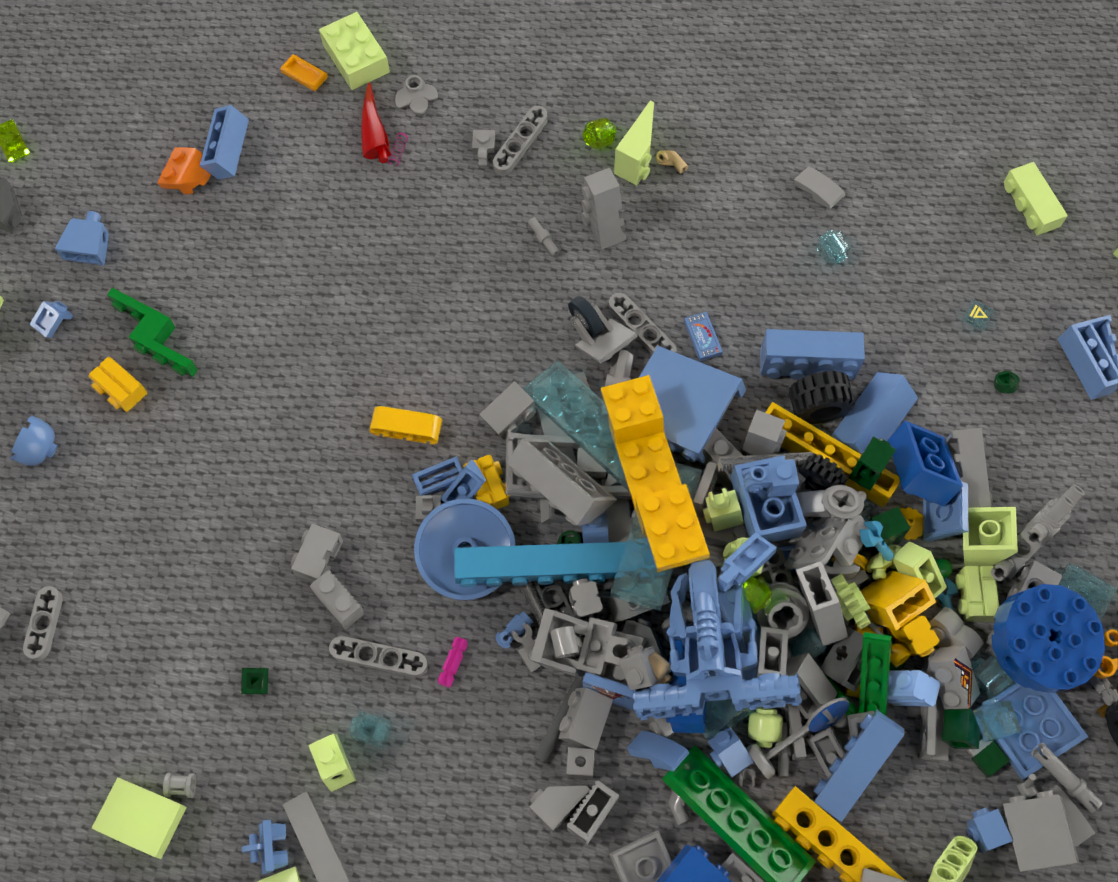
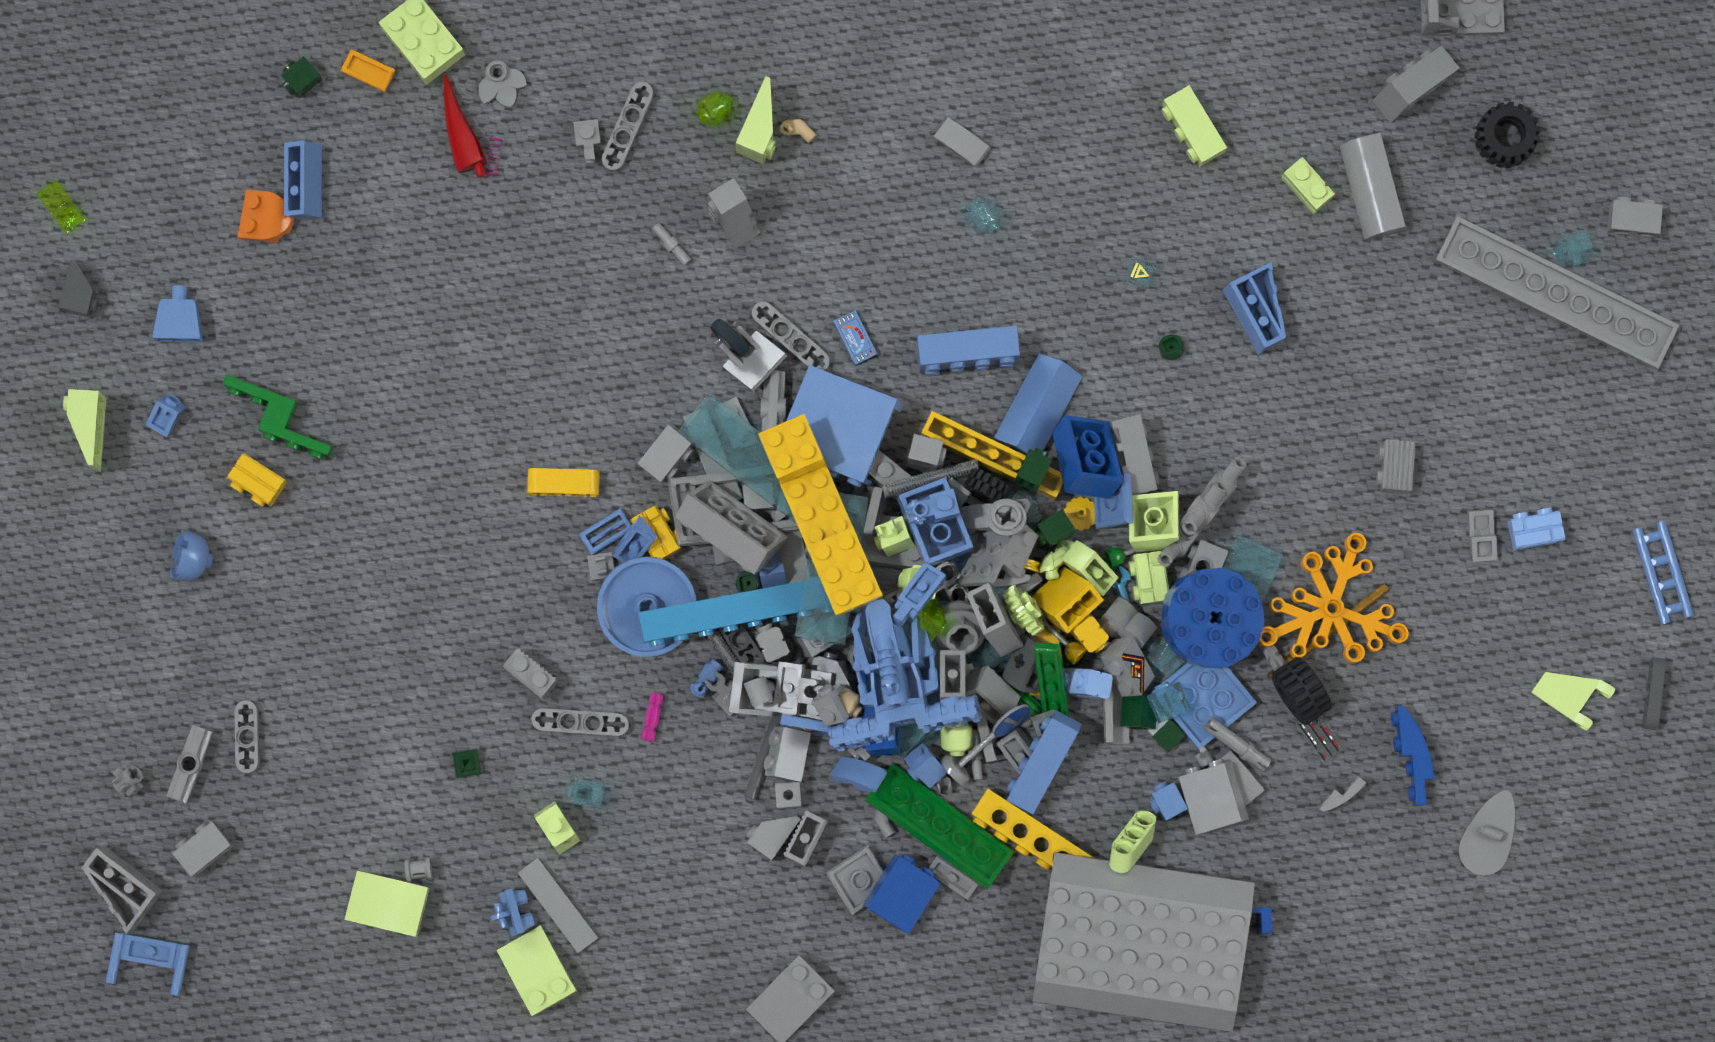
camera: 15 degrees left, 15 degrees up
(244, 68) = (300, 77): none -> dark green brick
(315, 552) = (500, 624): light grey brick -> none
(822, 397) = (981, 398): black tyre -> none
(872, 537) = (1041, 539): dark azure bar -> none

